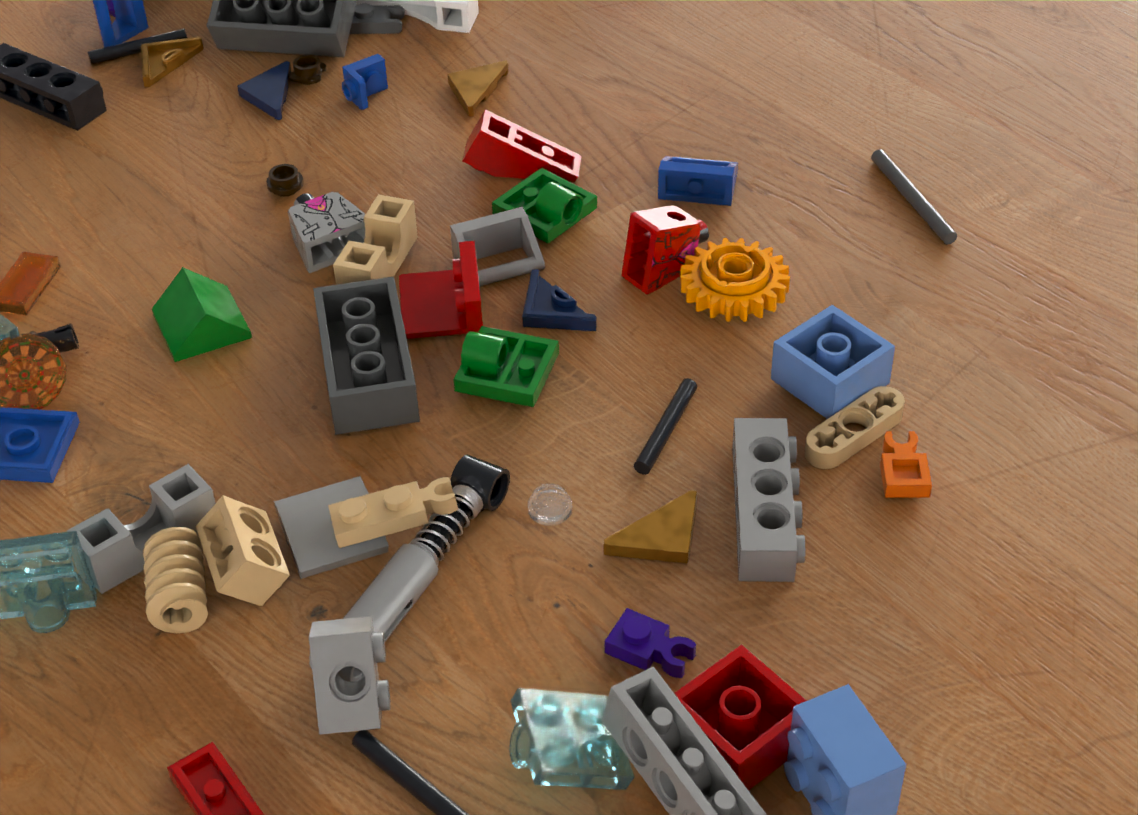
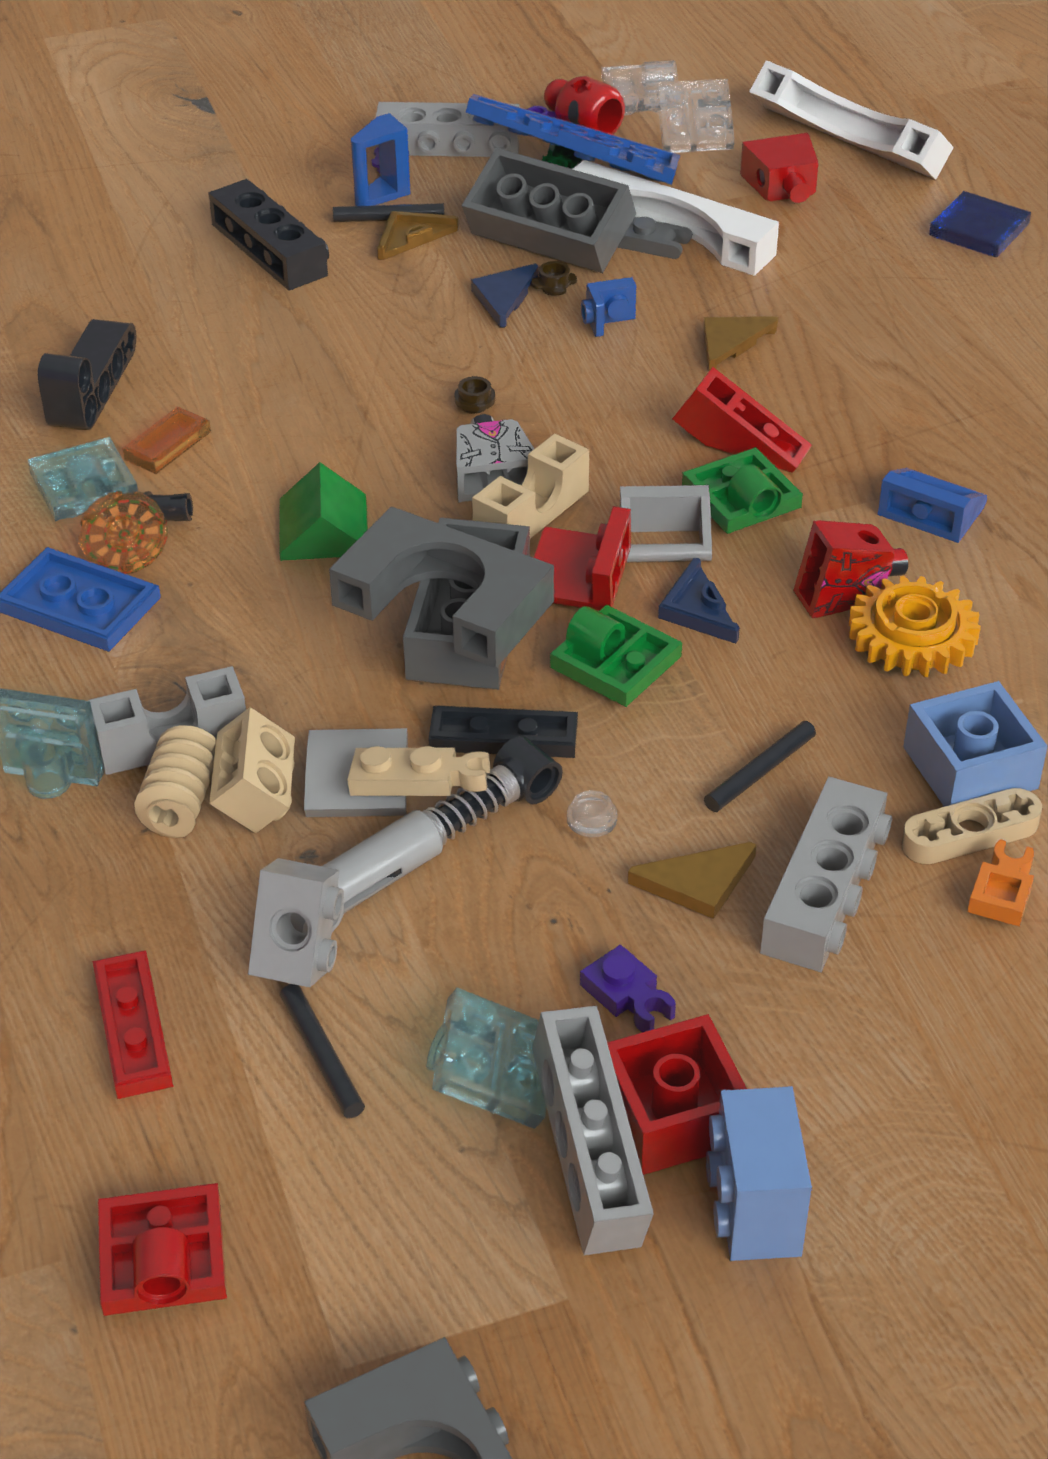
camera: 20 degrees right, 0 degrees up
(307, 319) = (408, 549): none -> dark grey arch
(438, 455) = (490, 728): none -> black tile

